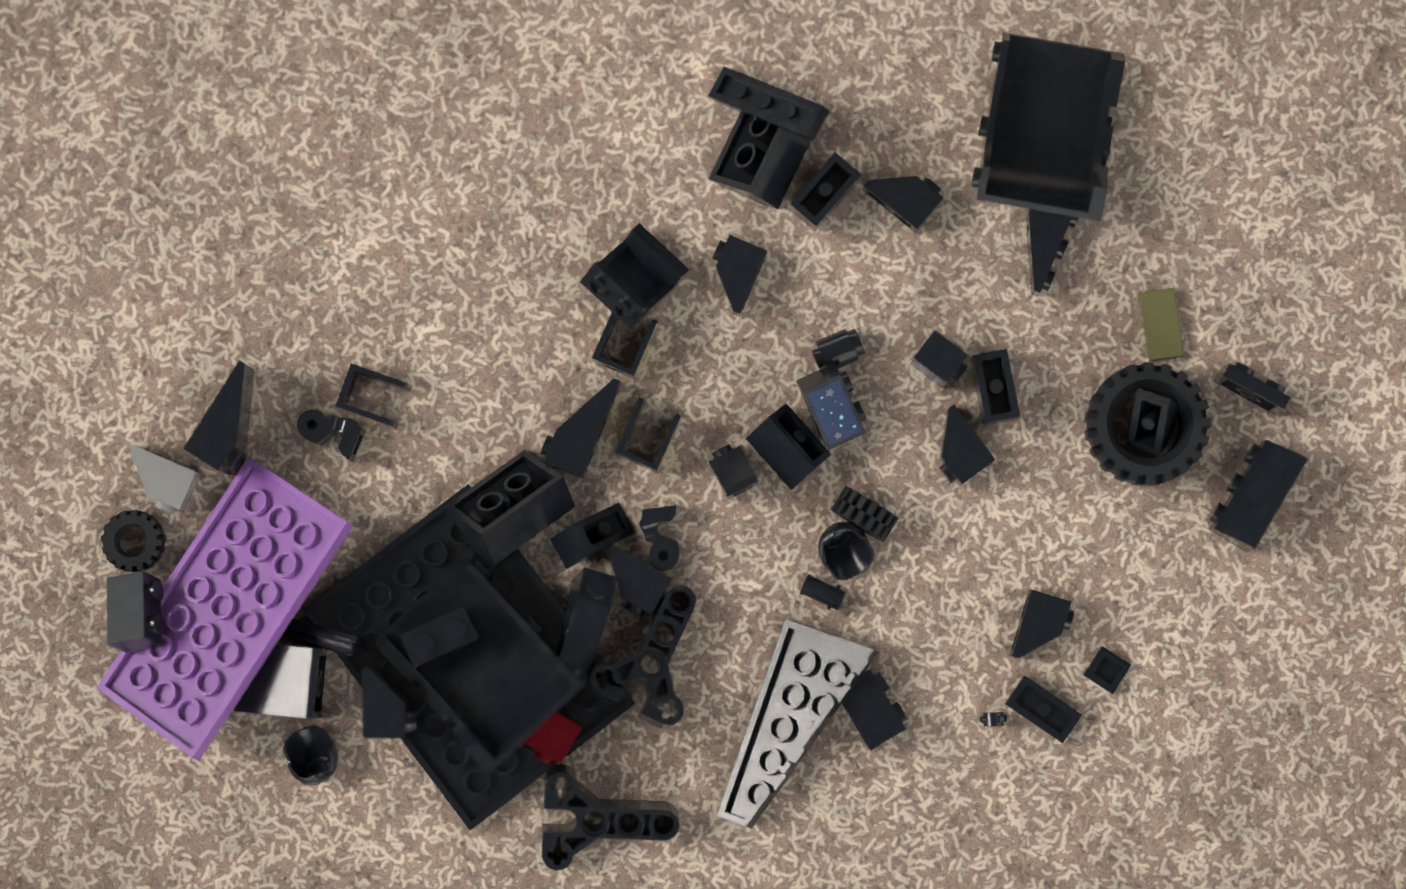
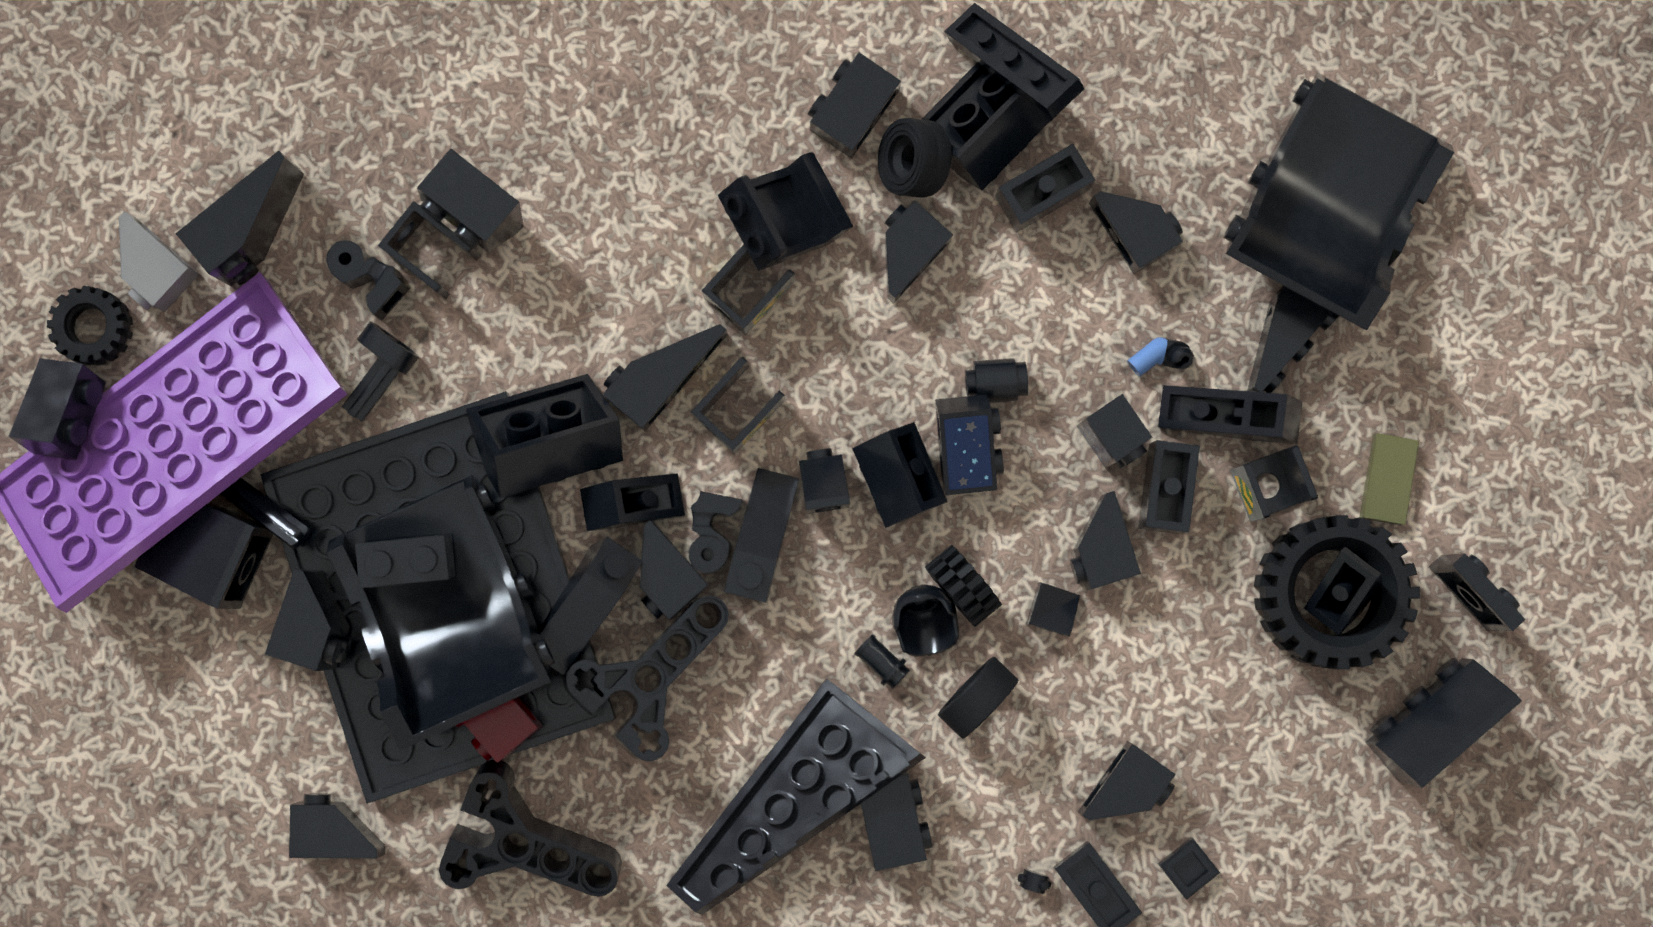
camera: 10 degrees right, 0 degrees up
(311, 755) = (209, 650): black hair -> none
(373, 488) = (391, 360): none -> black piece
(394, 350) = (470, 202): none -> black slope
(448, 860) = (329, 831): none -> black slope
(658, 175) = (853, 104): none -> black brick
(699, 527) = (761, 535): none -> black slope
(718, 202) = (914, 157): none -> black tyre
(904, 594) = (978, 697): none -> black tyre
(939, 509) = (1053, 609): none -> black slope
(957, 285) = (1162, 352): none -> arm
(1024, 315) = (1231, 413): none -> black slope
(1087, 350) = (1293, 481): none -> black piece

